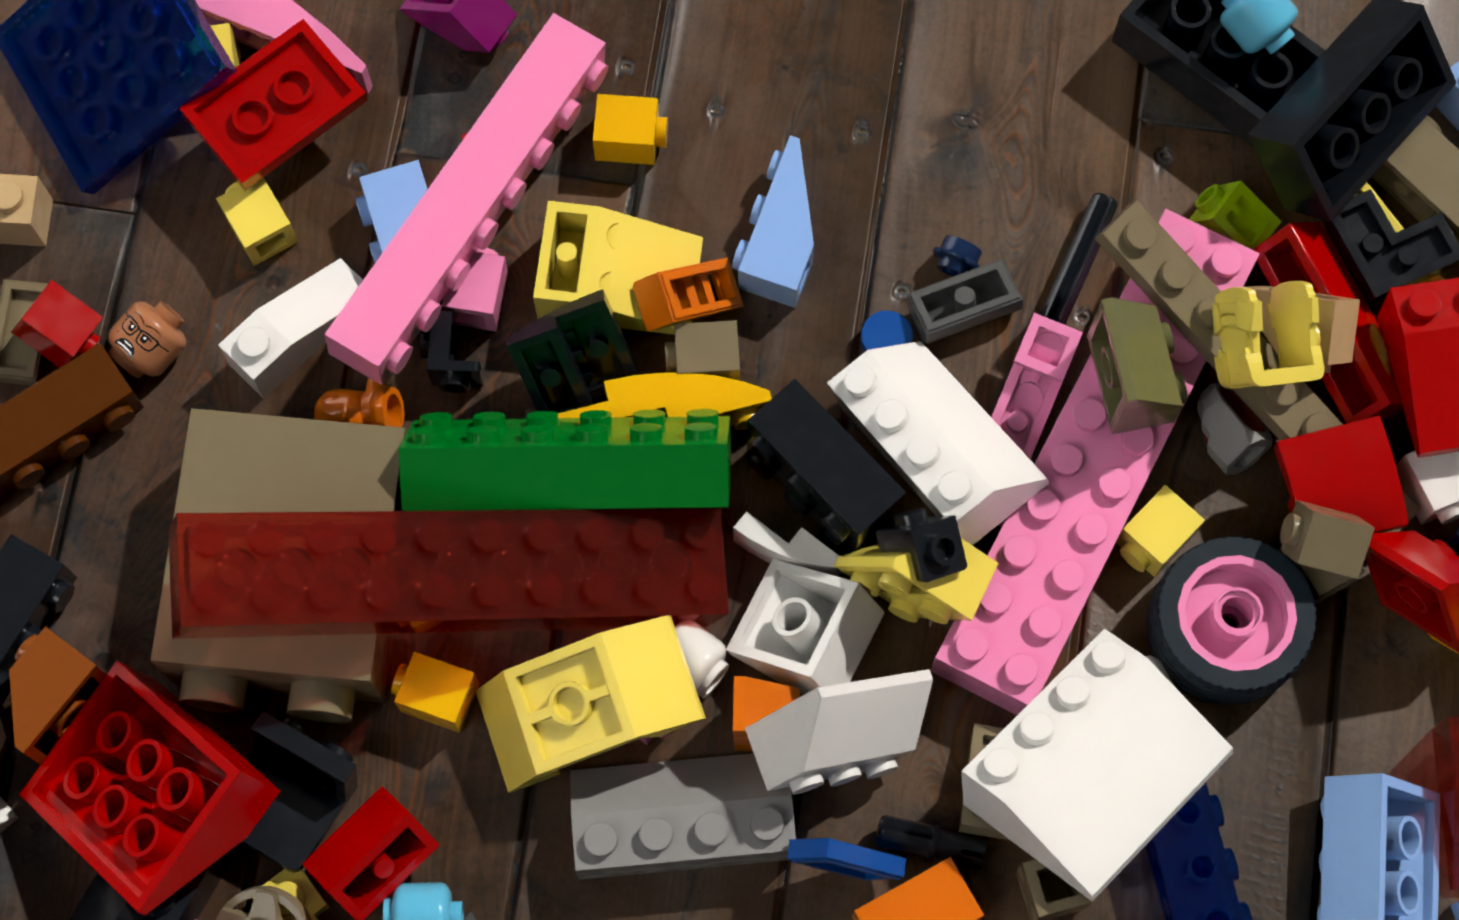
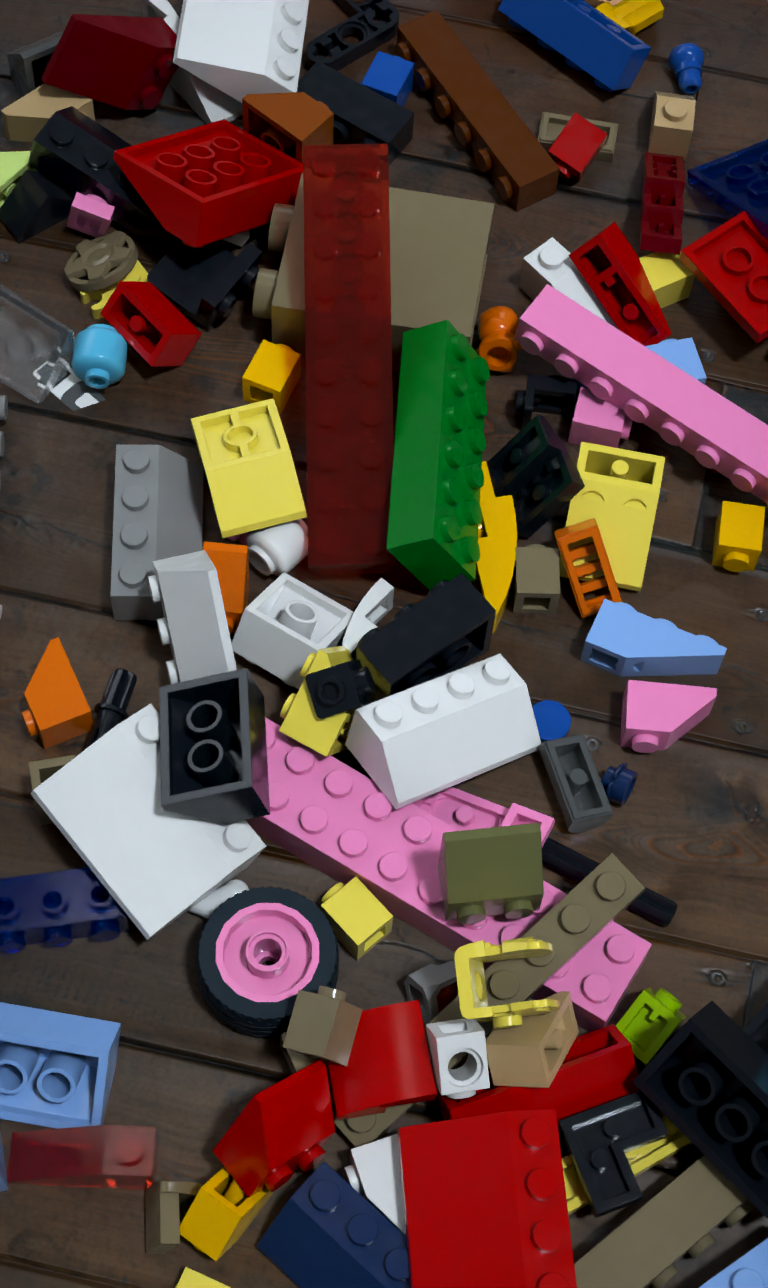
camera: 90 degrees right, 10 degrees down
(143, 219) = (662, 203): none -> dark red slope
(147, 339) = (565, 205): nougat head -> none
(284, 261) = (621, 285): none -> red slope
(846, 859) = (99, 634): blue tile -> none
(870, 213) = (661, 713): none -> bright pink slope
(1018, 687) = (214, 748): none -> black slope
(1340, 397) = (444, 1042): none -> white brick

